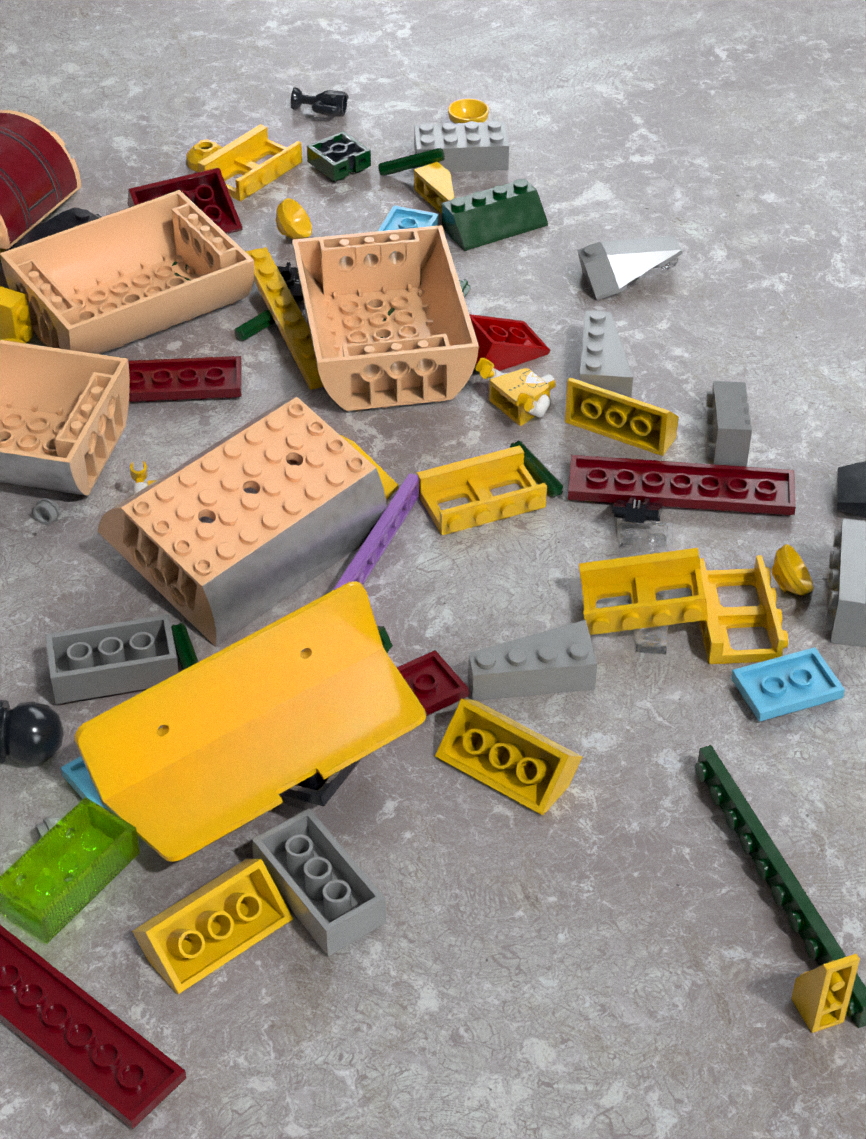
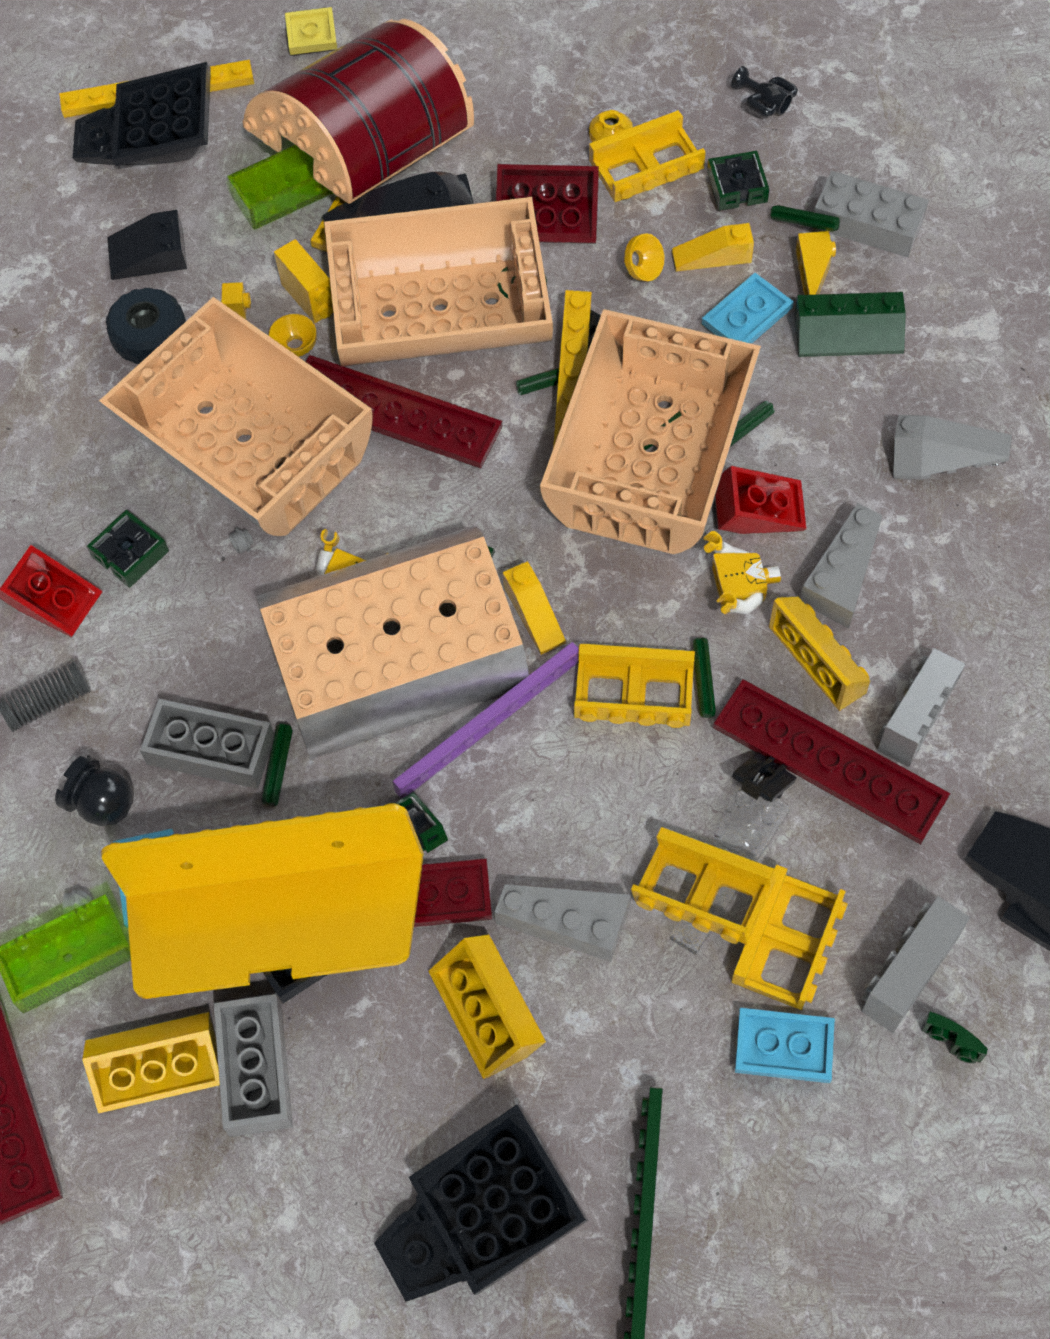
camera: 30 degrees right, 20 degrees up
(353, 199) = (716, 248): none -> yellow slope
(468, 110) = (905, 158): yellow piece -> none
(615, 897) = (480, 1211): none -> black wedge
(791, 571) = (869, 919): yellow piece -> none

